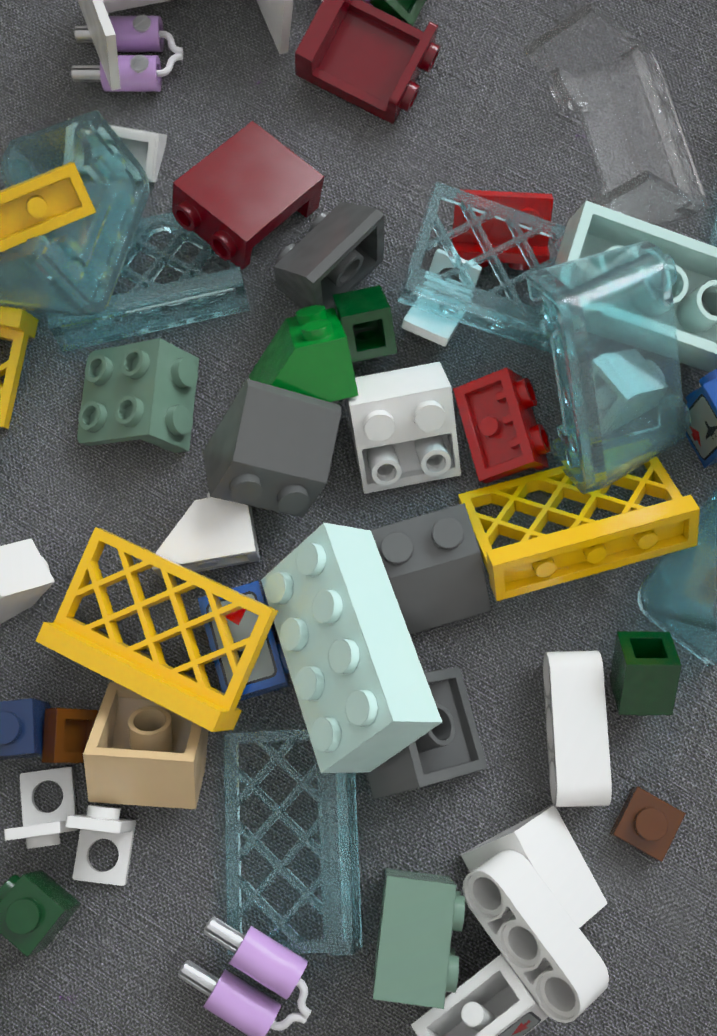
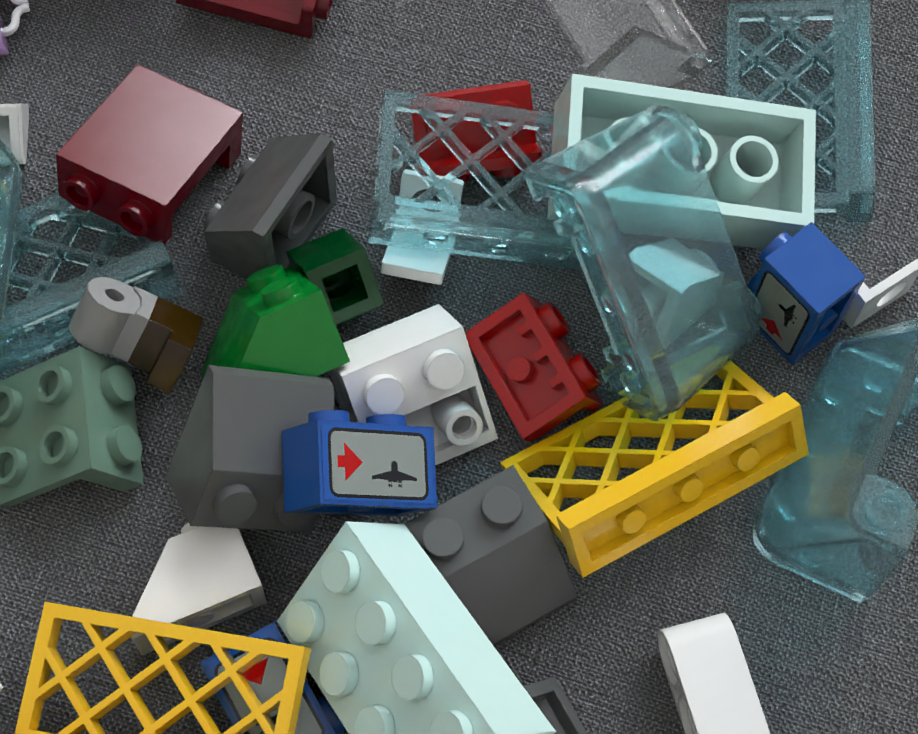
camera: 20 degrees left, 10 degrees down
(206, 332) = (136, 329): none -> leg
(344, 479) = (358, 466): none -> brick
(645, 673) = (787, 626): dark green brick -> none

